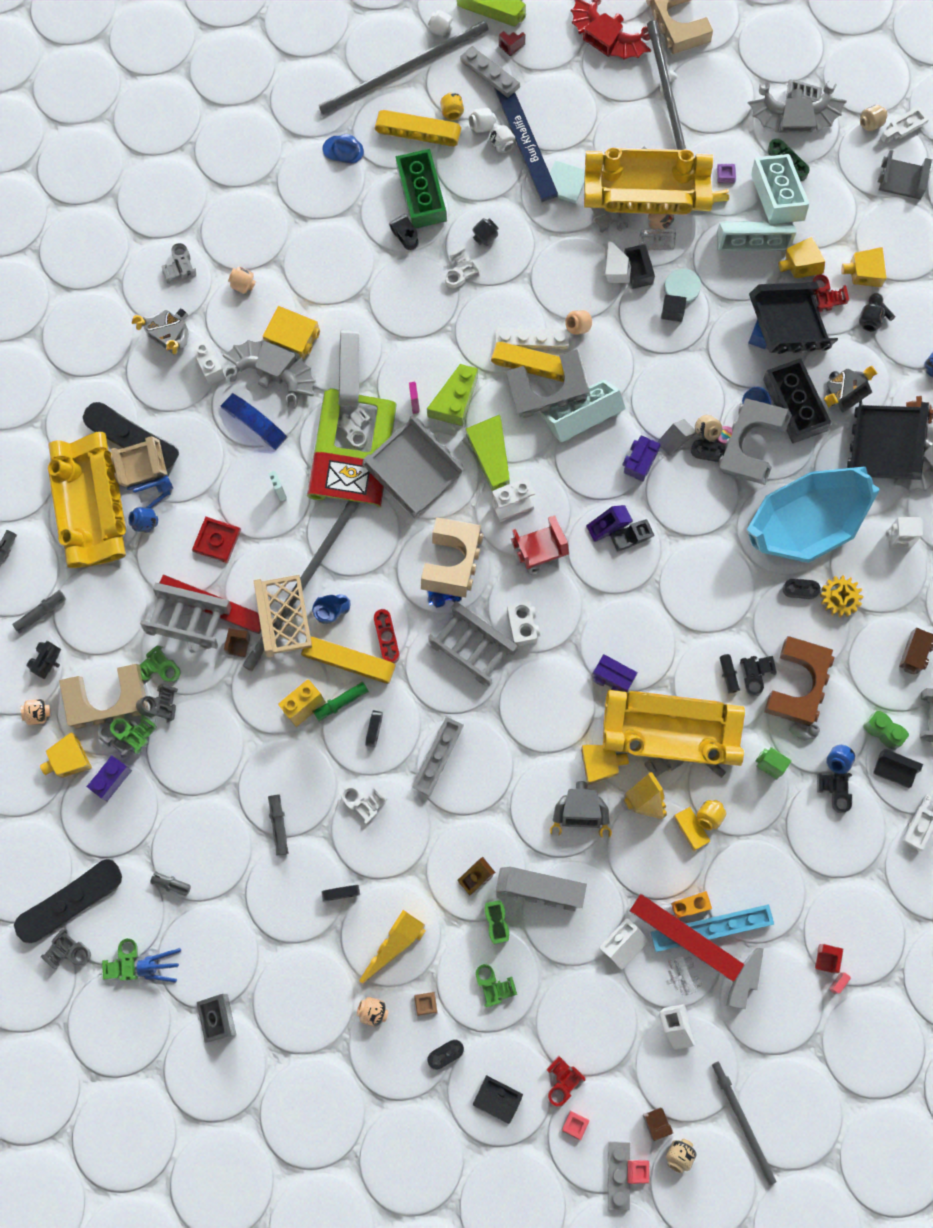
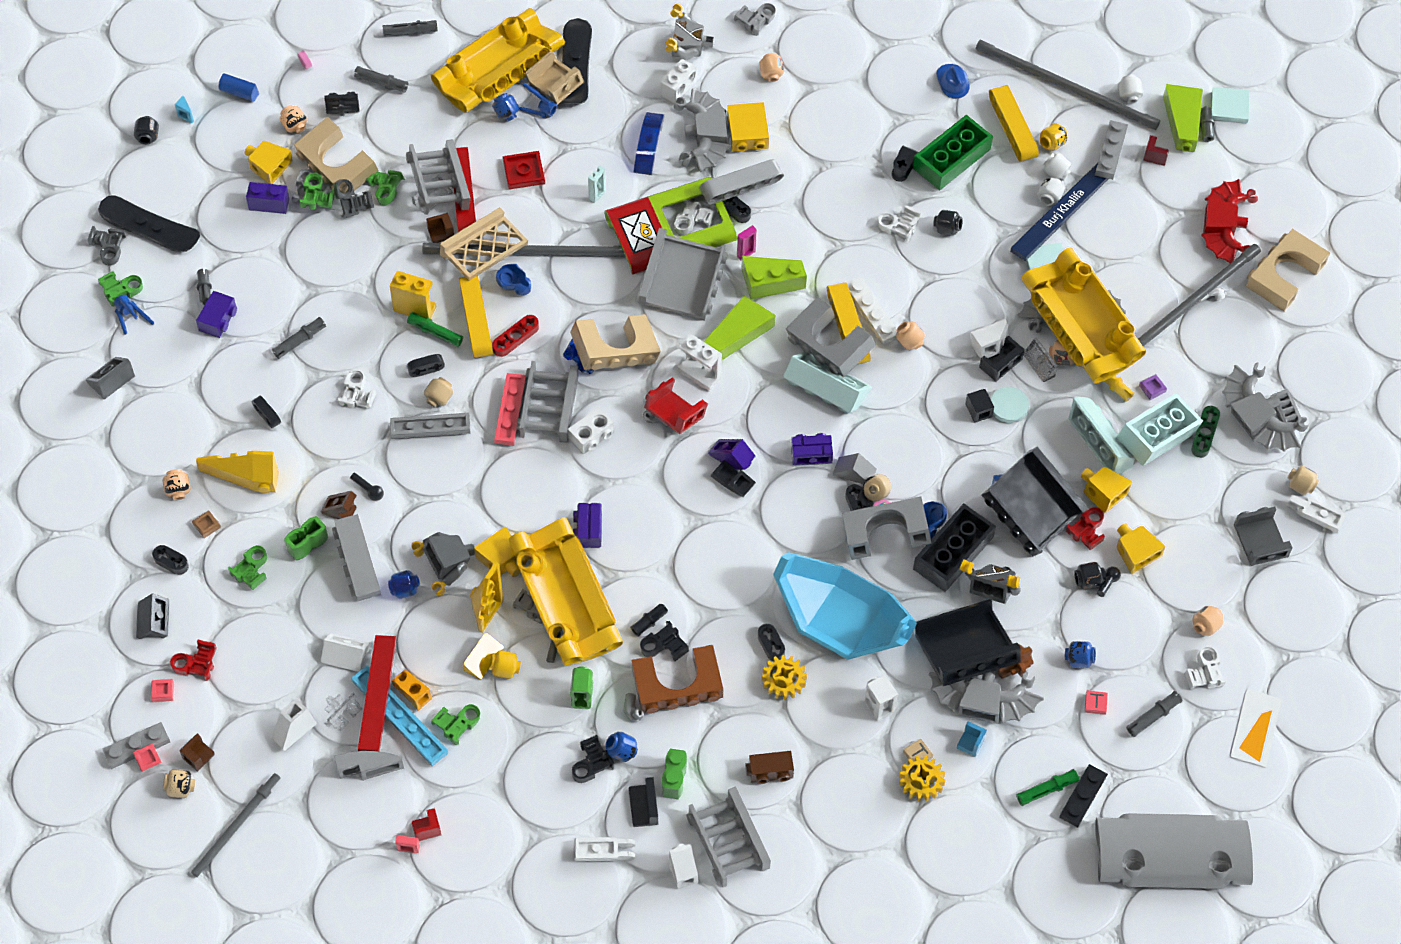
camera: 55 degrees right, 15 degrees down
(209, 886) = (216, 314): none -> dark purple brick
(366, 387) = (736, 207): none -> black beam
(409, 732) = (438, 392): none -> tan head
(460, 679) = (510, 409): none -> coral plate
(476, 838) = (374, 492): none -> black bar
(587, 860) = (403, 584): none -> clear blue head
(746, 886) = (454, 726): none -> bright green piece

